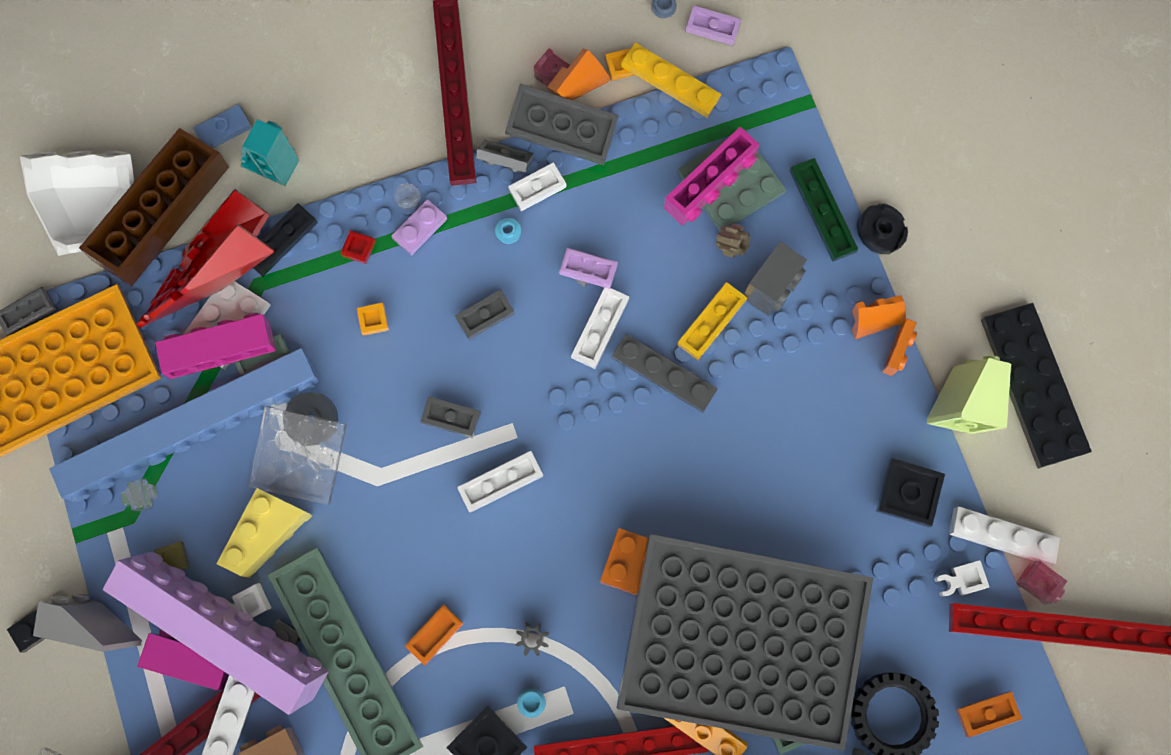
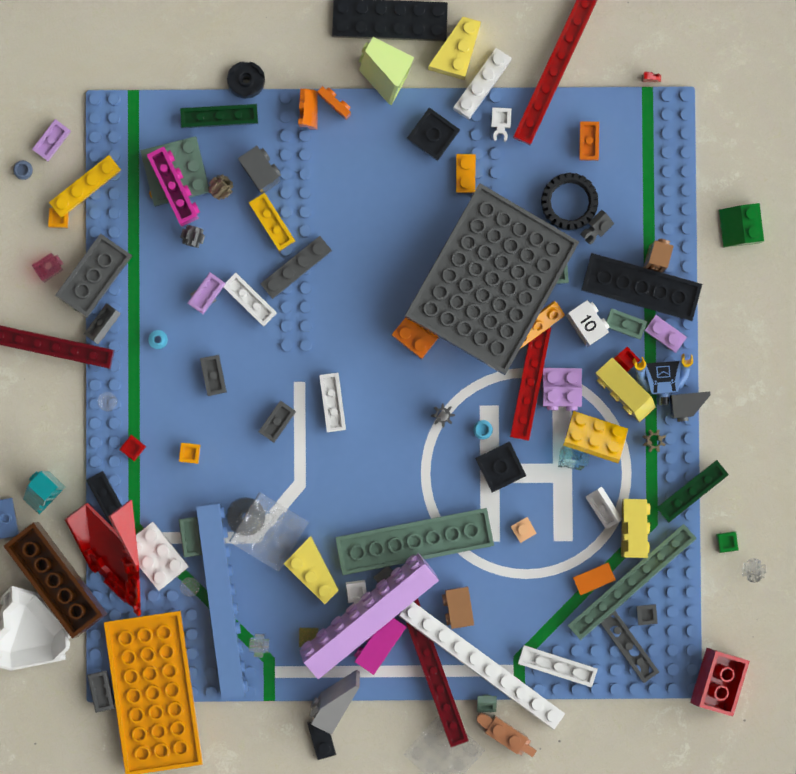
camera: 75 degrees left, 10 degrees up
(197, 382) = (190, 586): none -> clear tile
(215, 346) = (176, 563): dark pink brick -> none
(419, 227) = (133, 400): lavender plate -> none
(434, 634) = (418, 478): orange tile -> none
(537, 186) = (133, 308): white plate -> none
(580, 77) = (62, 250): orange slope -> none
(656, 227) = (192, 236): none -> dark grey gear
(874, 555) = (465, 173): none -> light orange plate
(1034, 486) = (457, 50): none -> light yellow wedge
(1052, 581) = (512, 71): clear pink brick -> none

